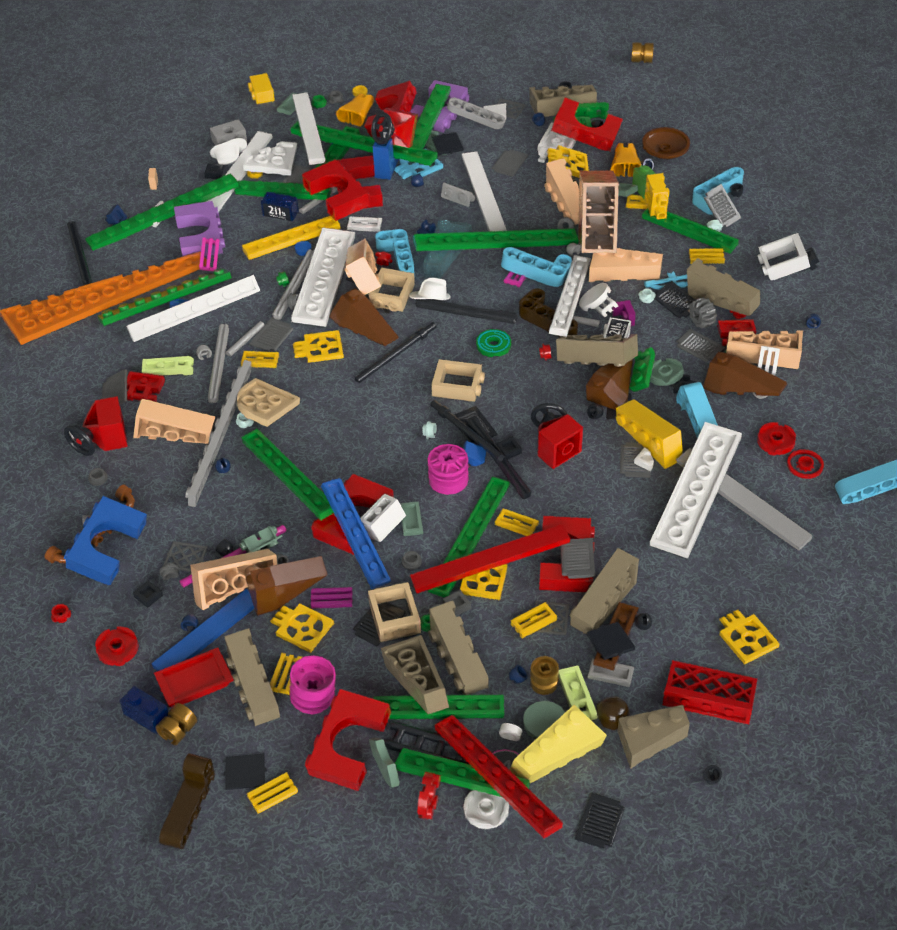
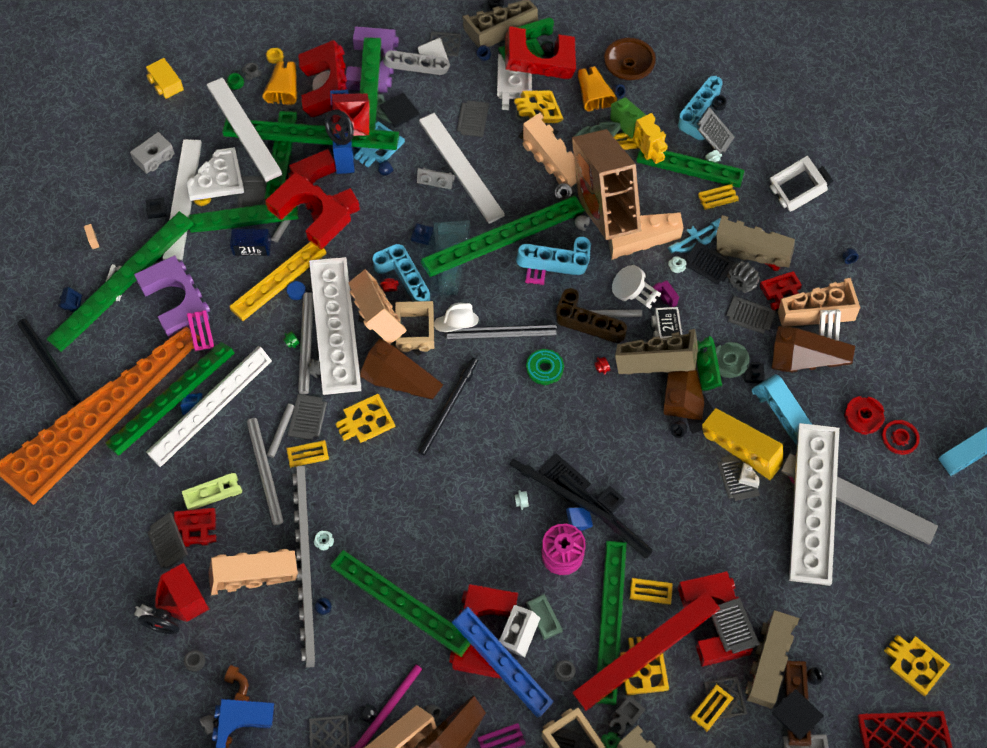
camera: 20 degrees left, 15 degrees up
(203, 350) = (241, 459): light grey hinge -> none
(229, 151) = (165, 181): white piece -> none
(264, 402) = (337, 513): tan plate -> none
(267, 538) = (411, 690): sand green hinge -> none
(287, 106) = (202, 94): sand green tile -> none
(364, 226) = (357, 243): white tile -> none
(455, 391) = (529, 443): tan window -> none
(557, 435) = (657, 477): red piece -> none
(569, 296) = (605, 291): white tile -> none

